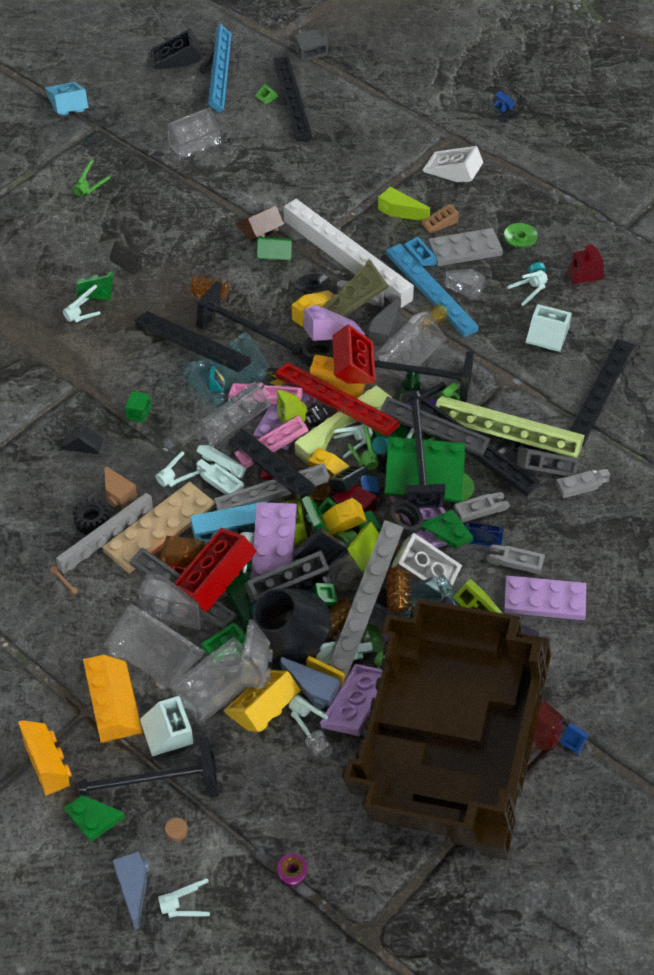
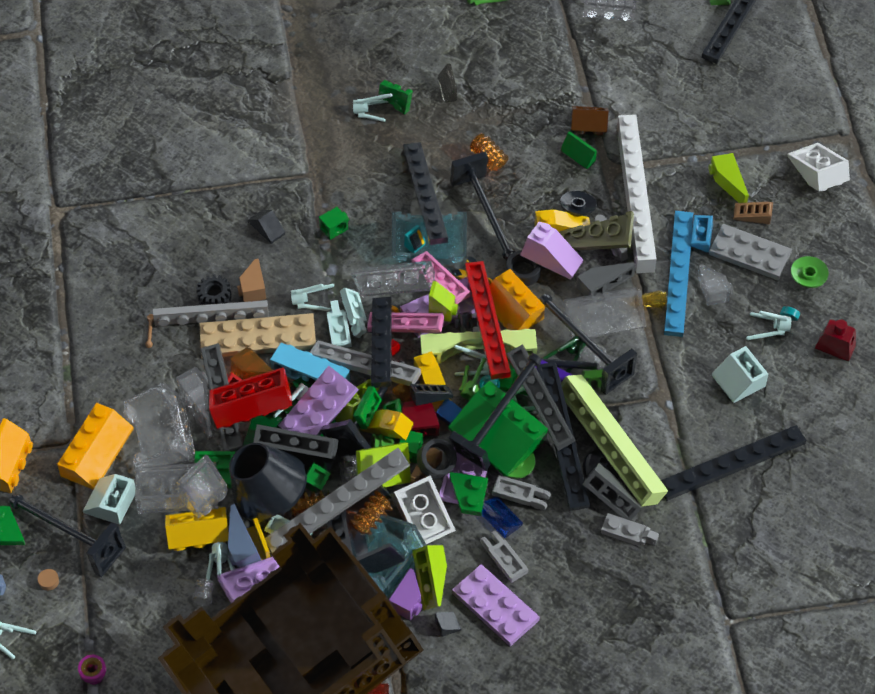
camera: 40 degrees right, 5 degrees up
(353, 356) = (532, 291): red slope -> none

